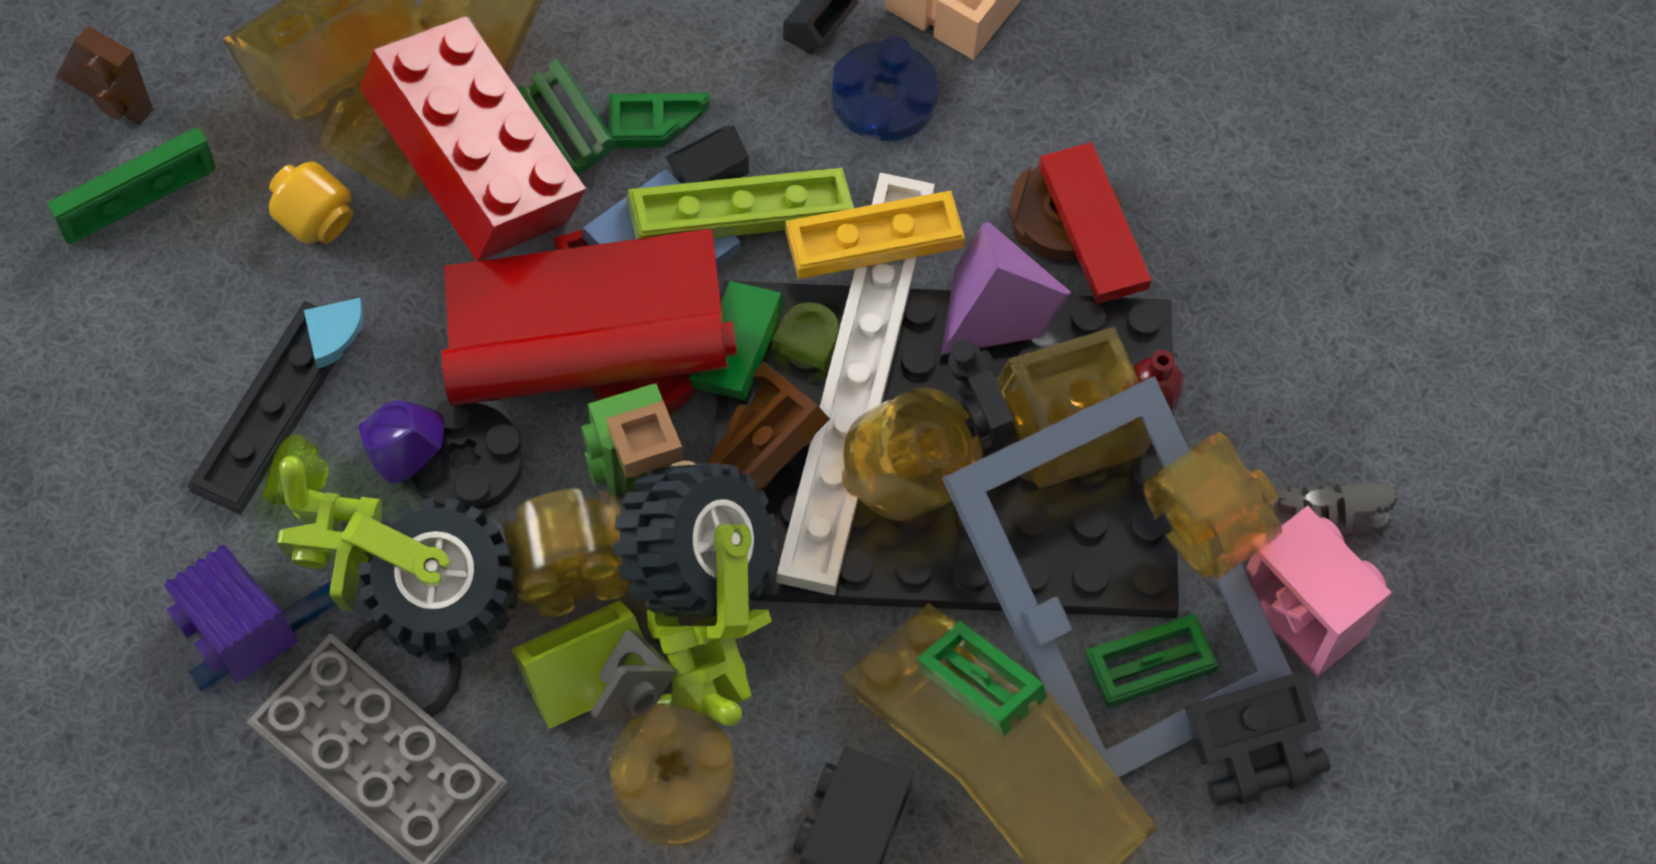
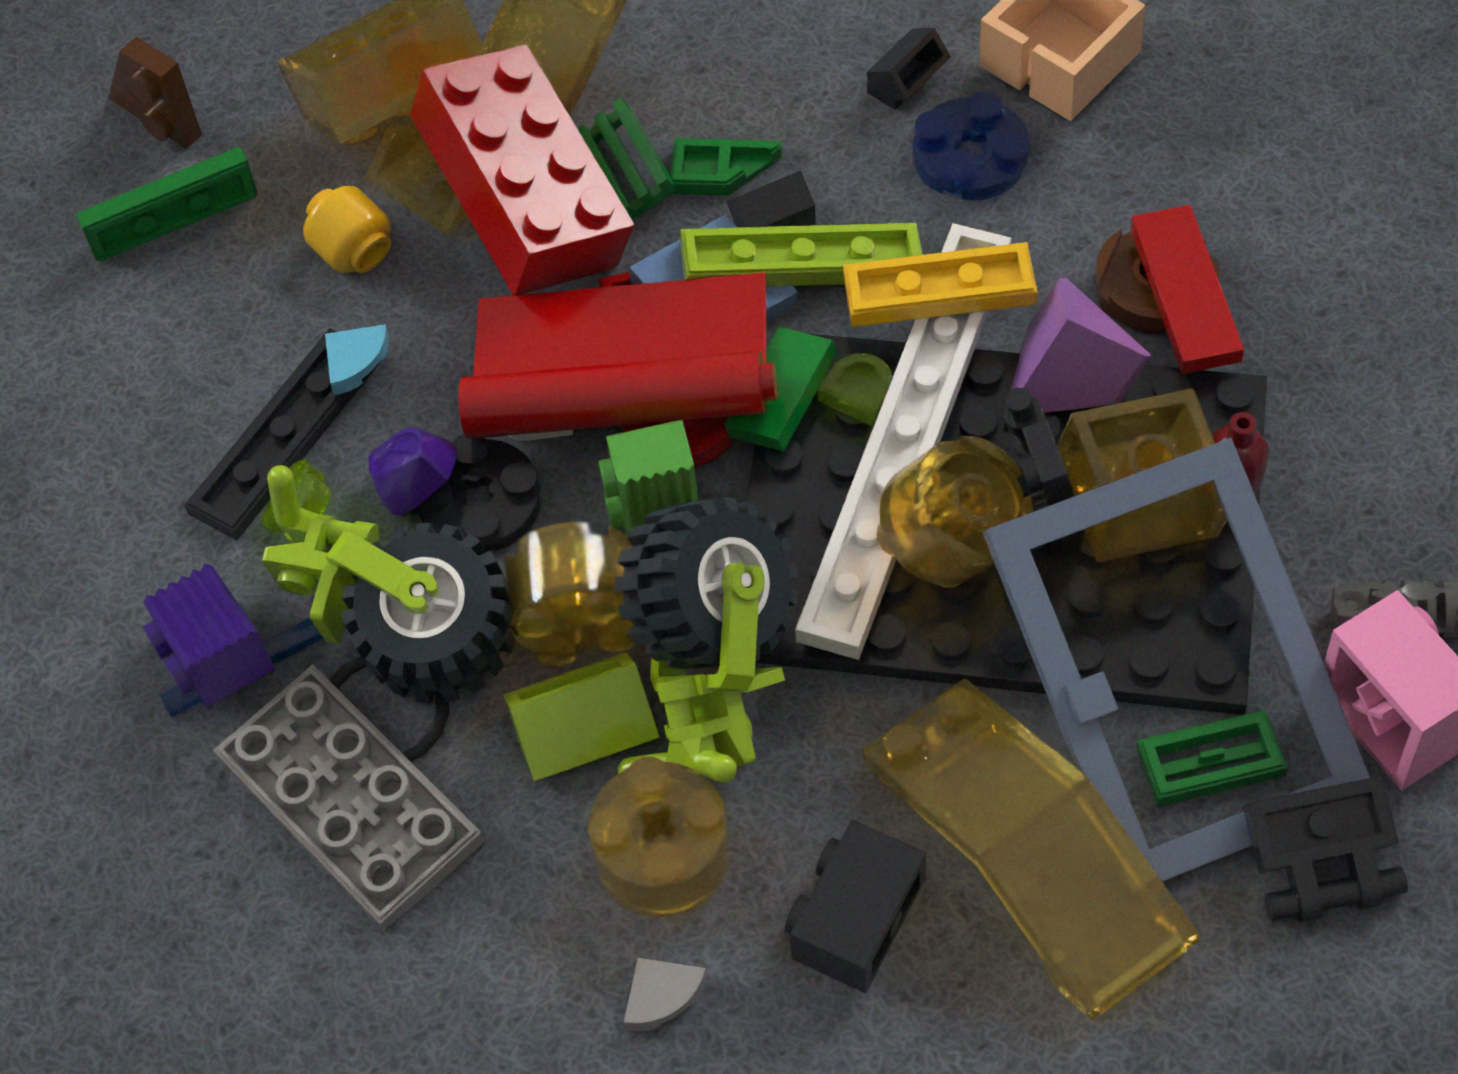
camera: 15 degrees right, 5 degrees down
(632, 688) = (622, 735): dark grey bracket -> none
(644, 439) = (661, 473): medium nougat tile -> none
(770, 430) = (807, 481): reddish brown wing -> none
(1012, 705) = (1039, 785): green tile -> none
(1214, 507) = (1287, 580): clear yellow brick -> none

